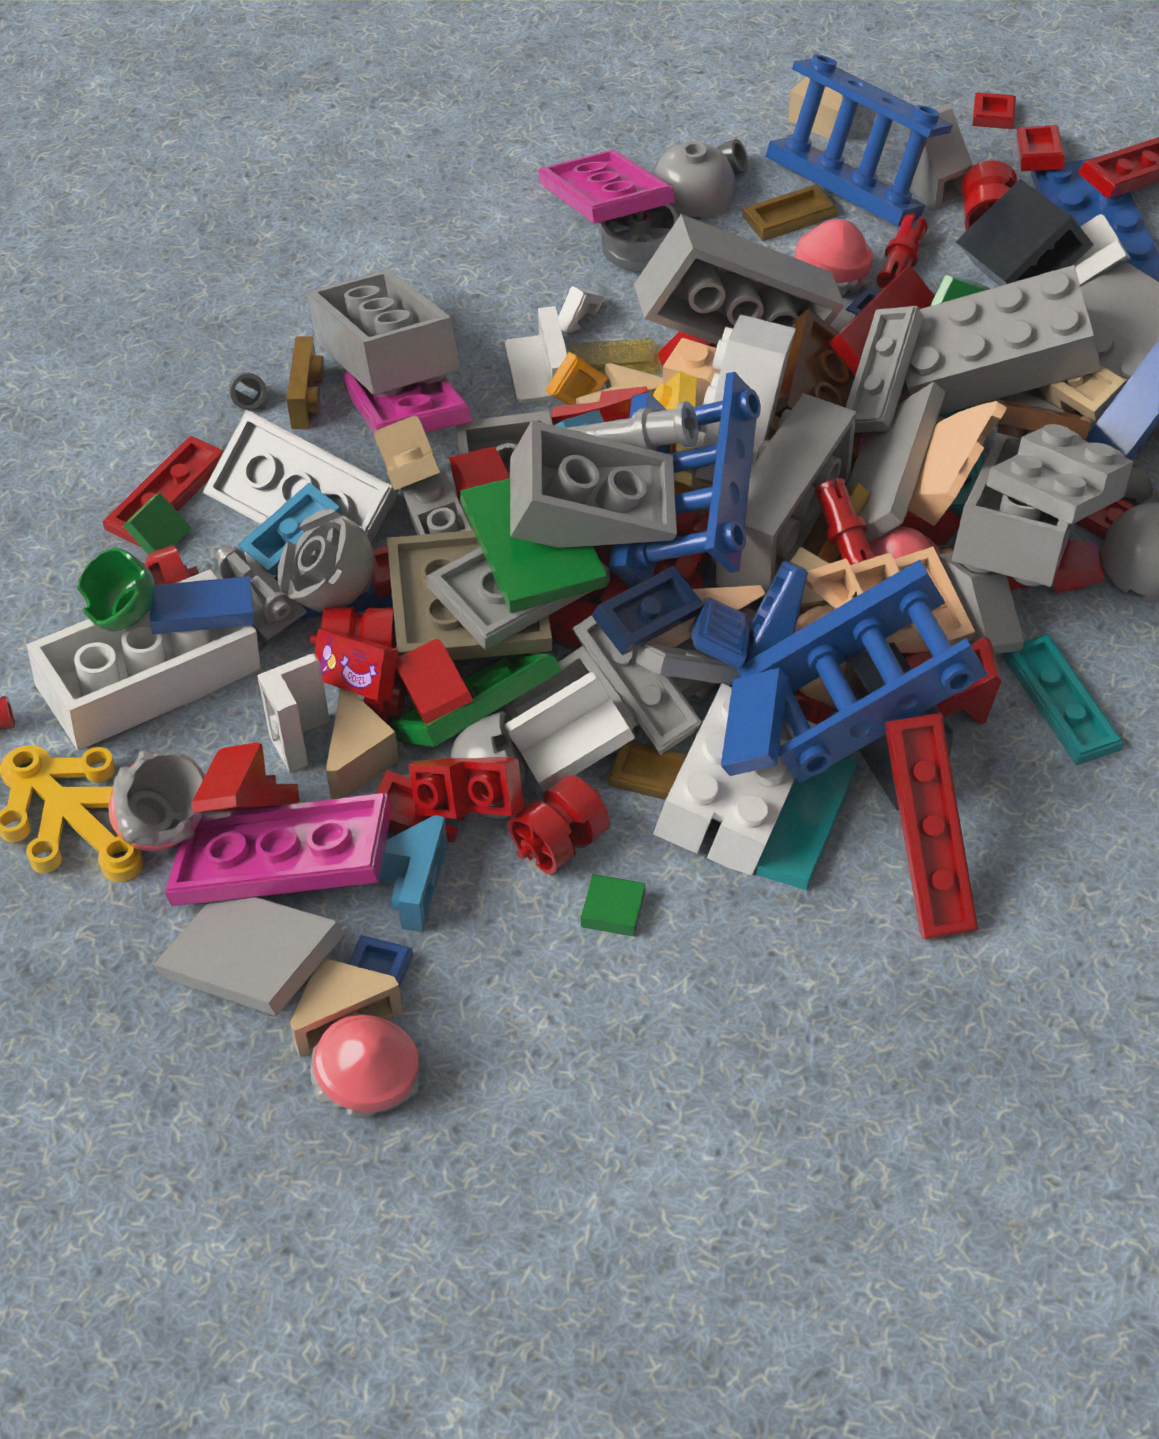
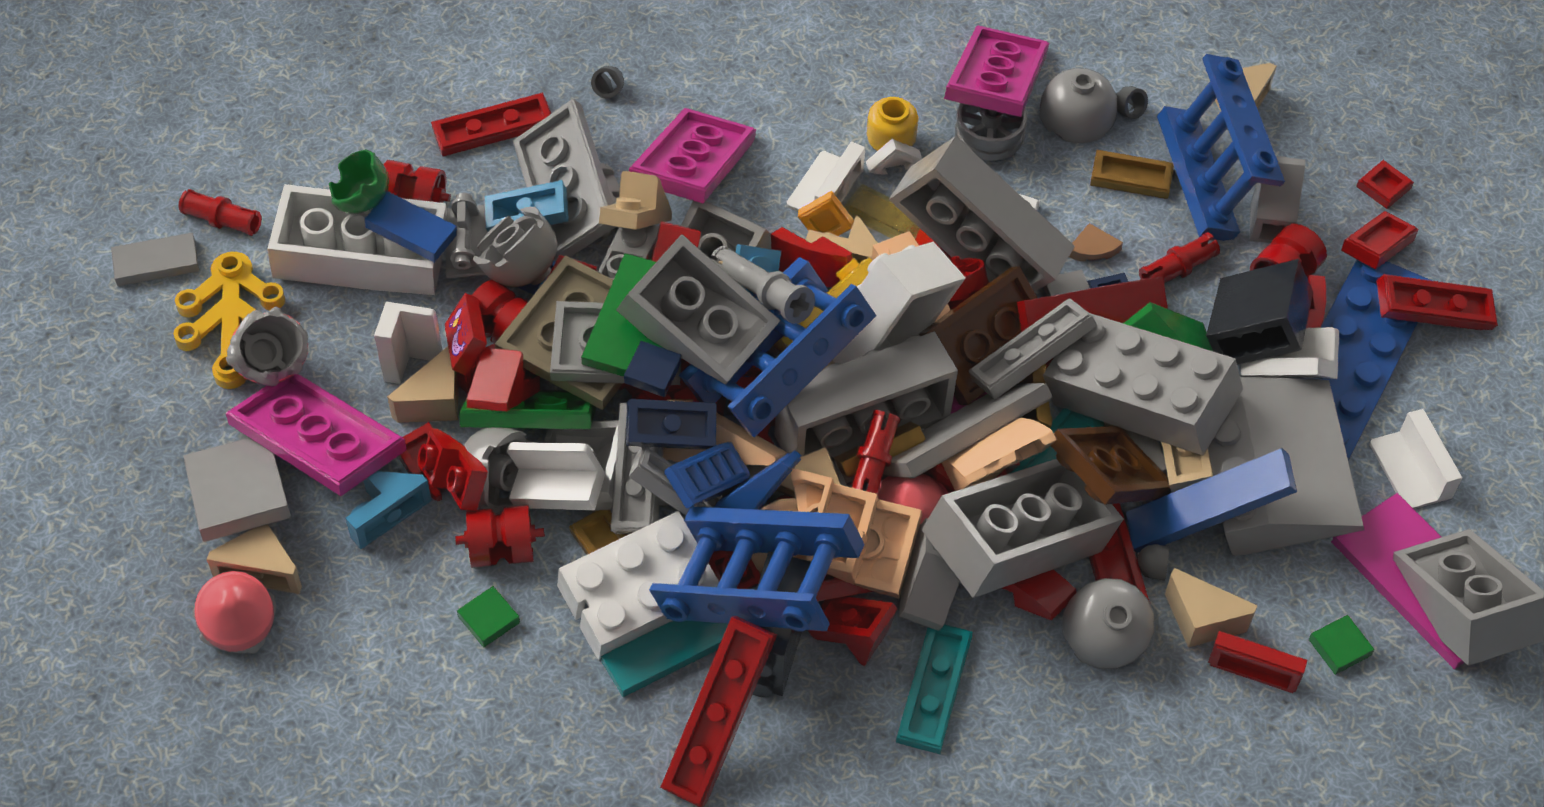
camera: 35 degrees right, 5 degrees up
(156, 525) = (457, 148): green tile -> none
(240, 783) = (321, 371): red slope -> none
(305, 371) = (651, 94): pearl gold plate -> none
(382, 957) = (311, 552): blue tile -> none
(384, 332) = (717, 94): light grey brick -> none
(552, 276) = (892, 119): none -> yellow head
(592, 568) = (652, 368): none -> dark blue tile
(754, 722) = (658, 554): blue tile -> none
(839, 249) = (1114, 234): coral hair -> none
(1062, 474) = (1050, 519): light grey plate -> none

